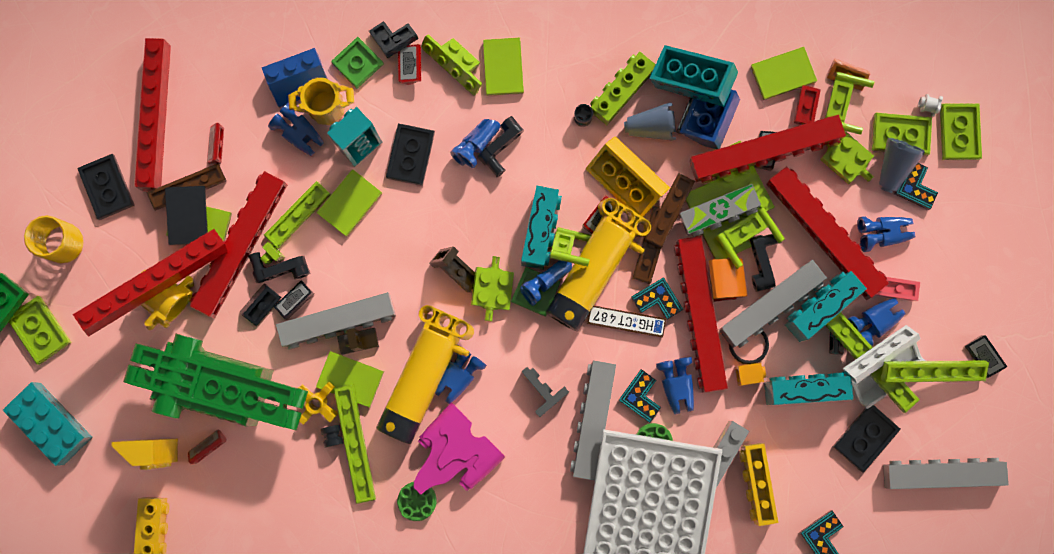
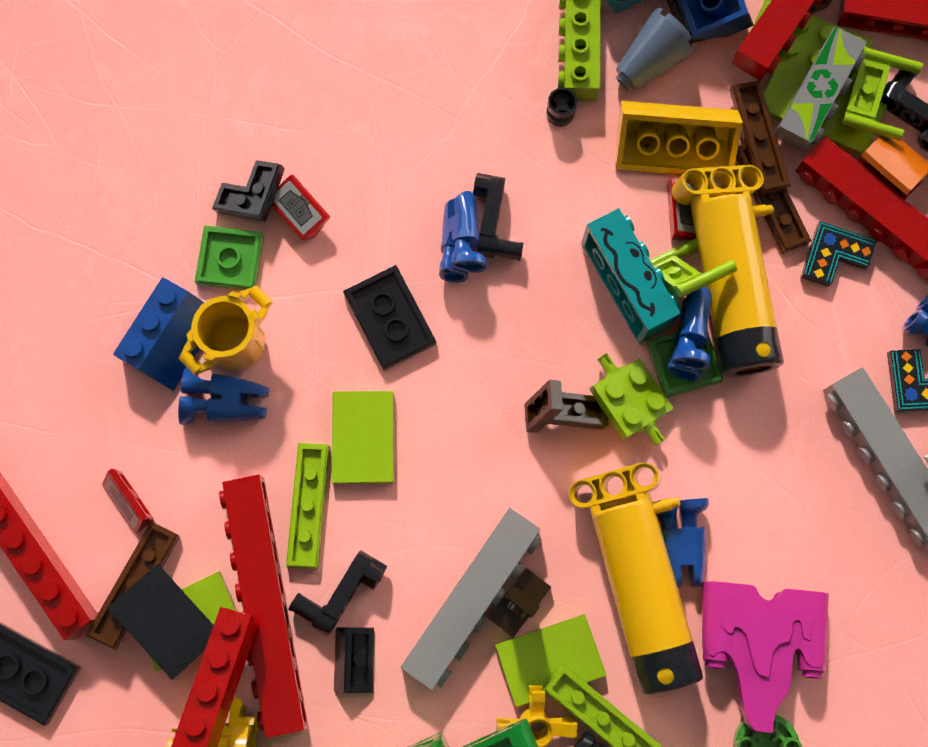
camera: 40 degrees left, 5 degrees down
(271, 254) = (317, 581): lime tile -> none
(294, 300) = (393, 618): slope -> none
(354, 136) = (308, 340): teal brick -> none
(455, 61) = (351, 163): lime bracket -> none
(503, 66) = (415, 125): lime tile -> none
(544, 390) = (820, 477): dark grey bracket -> none
(627, 321) = (826, 306): tile -> none

